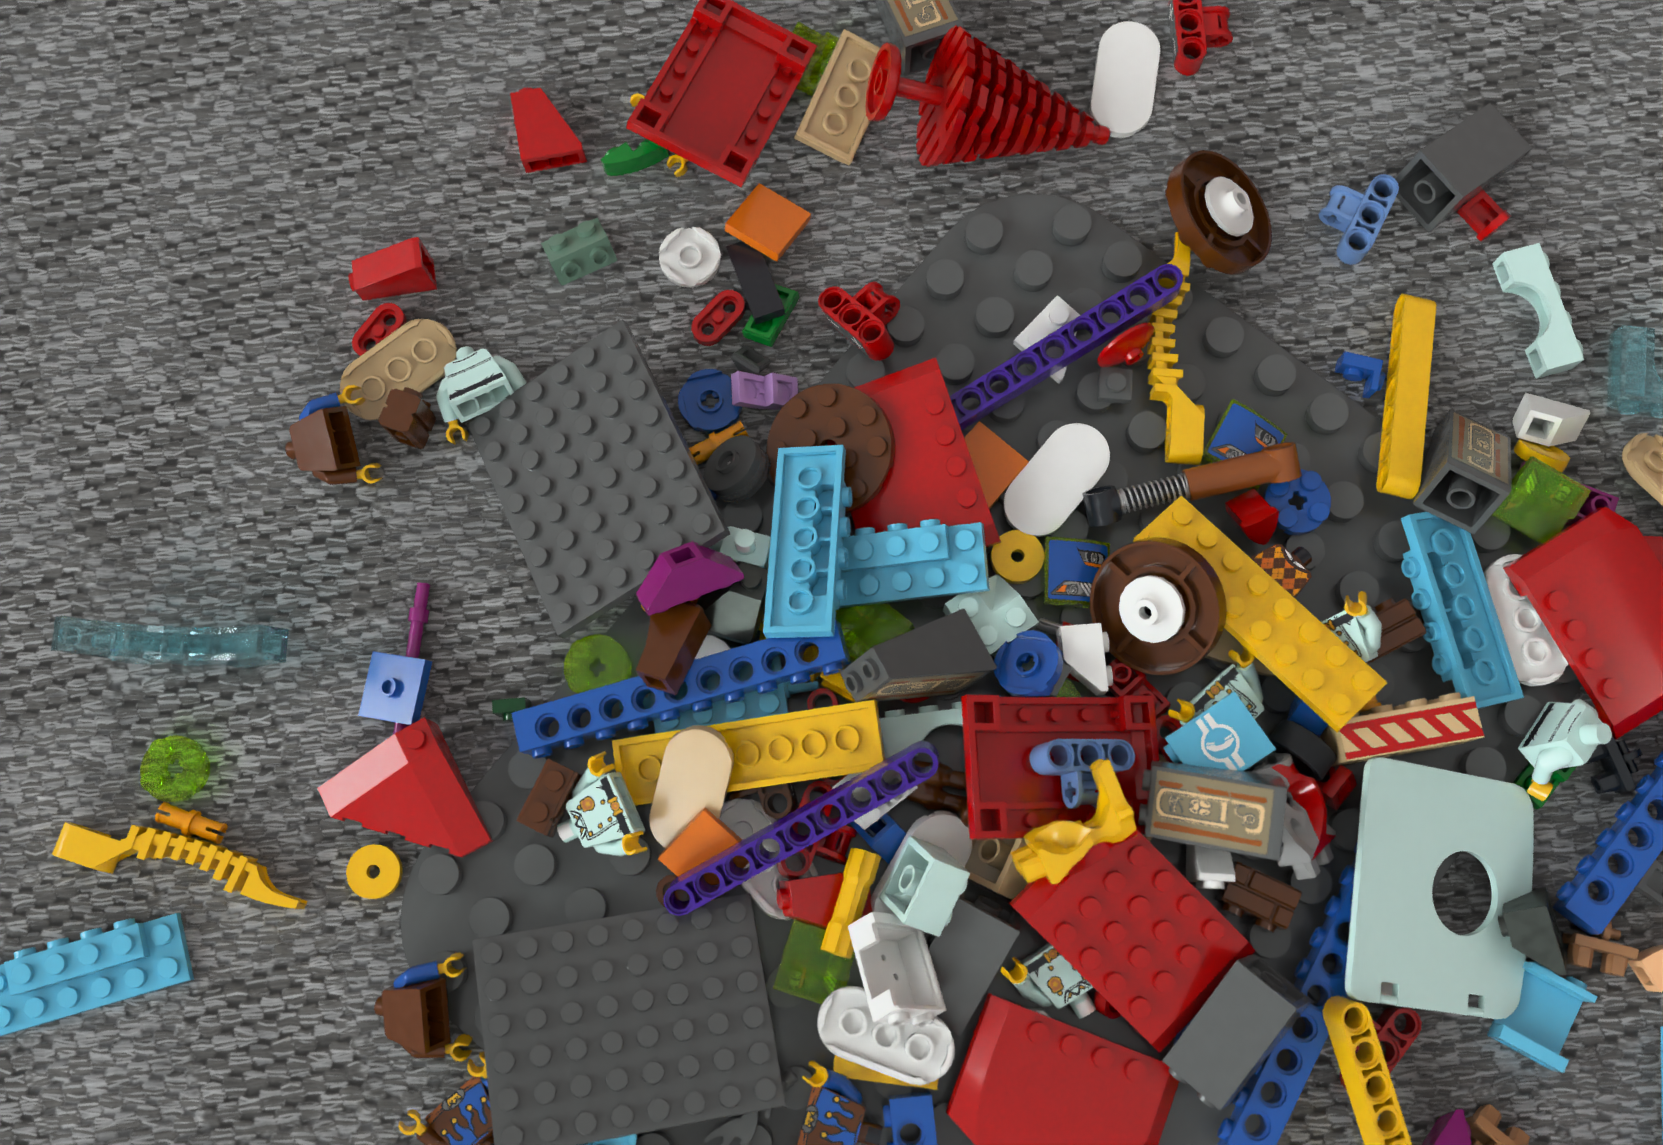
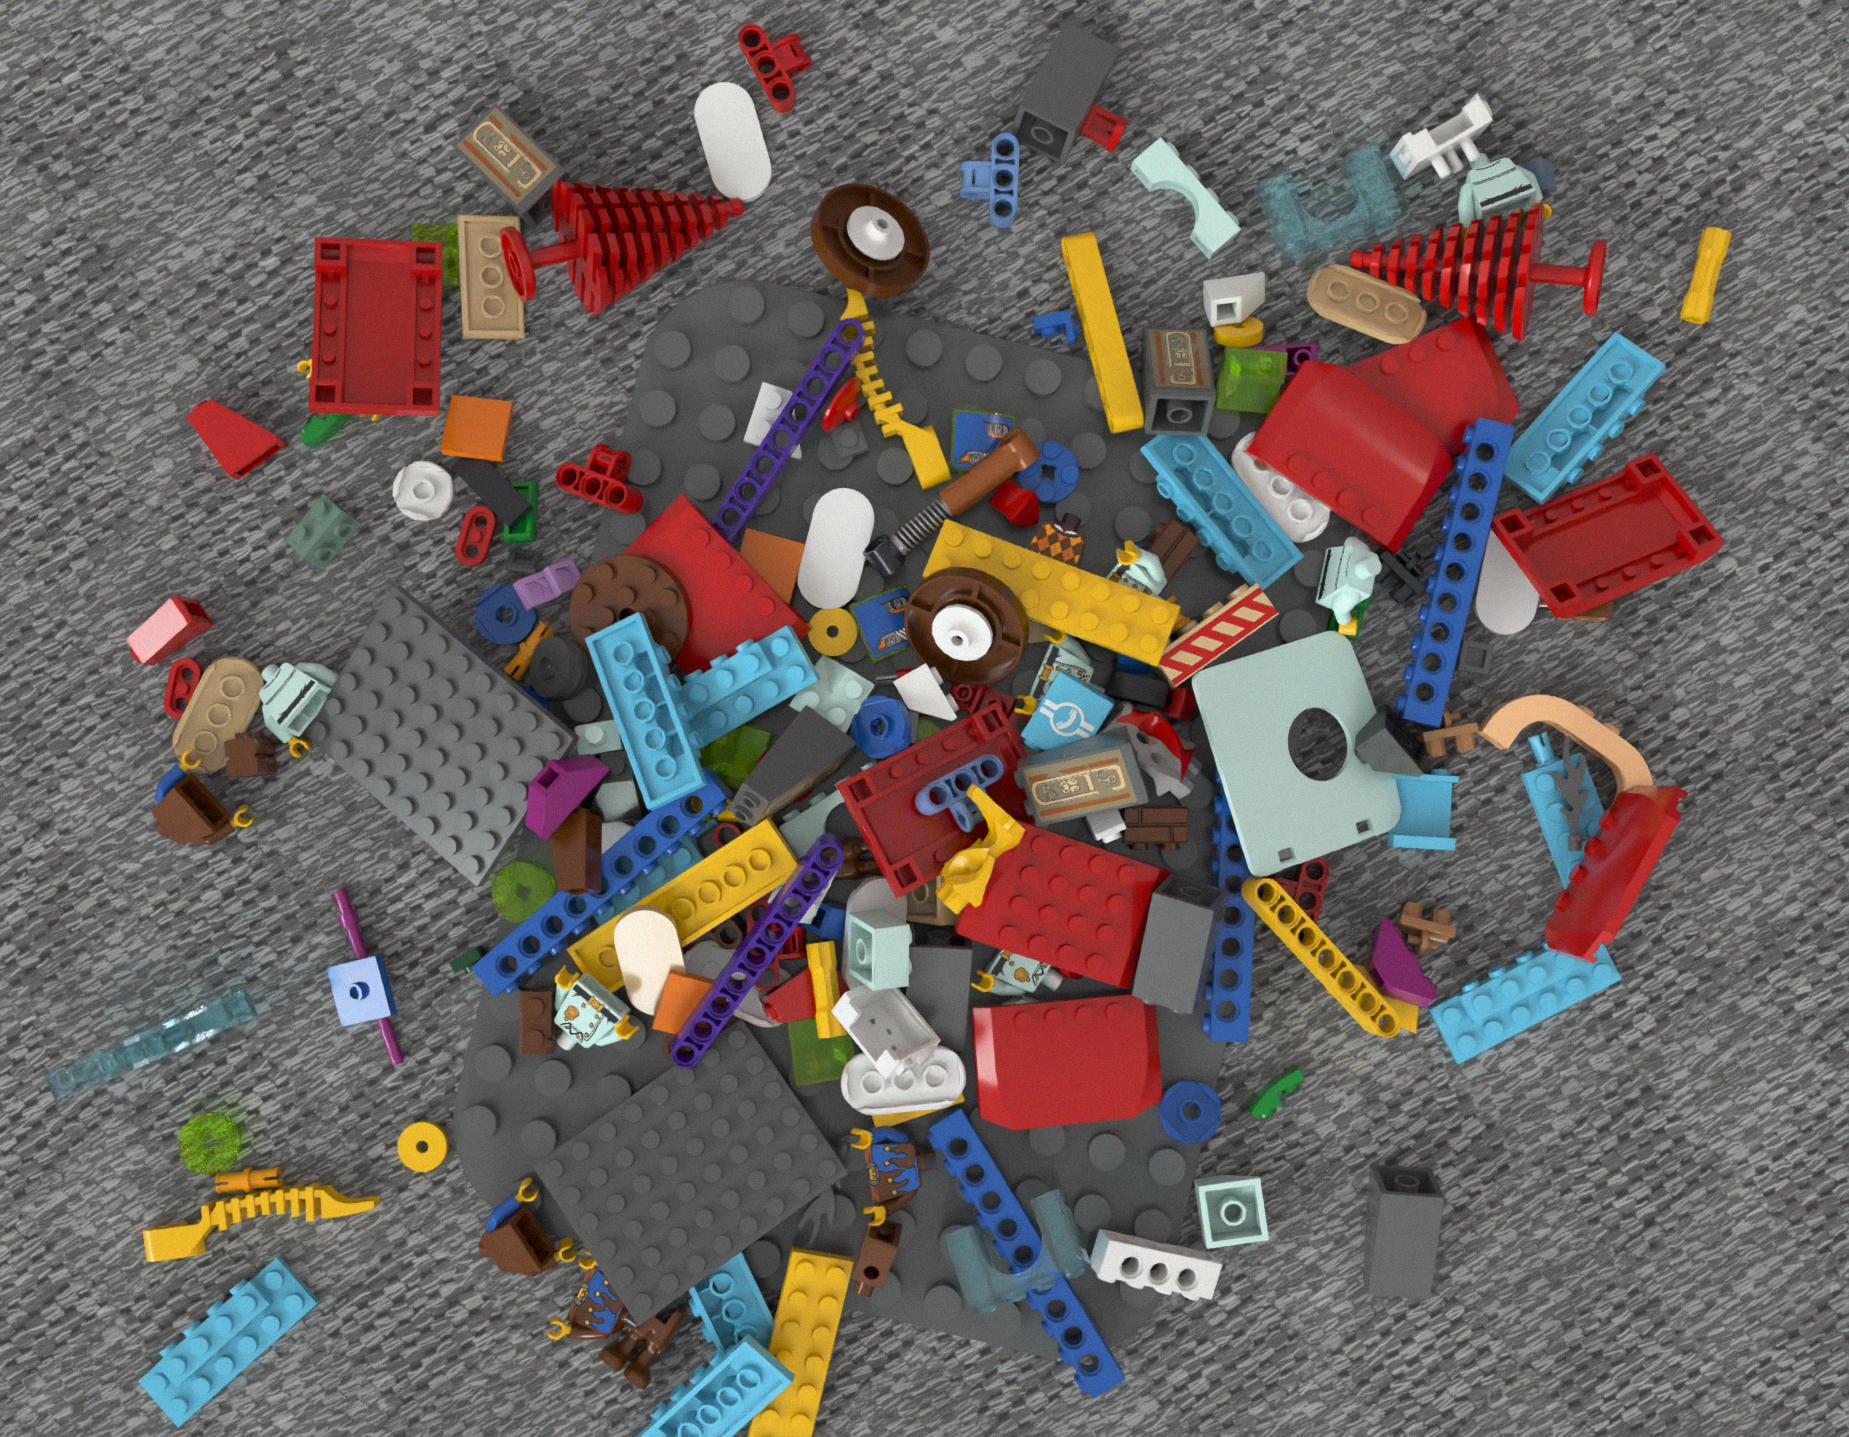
camera: 20 degrees left, 10 degrees up
(410, 790) = (419, 1067): red slope -> none

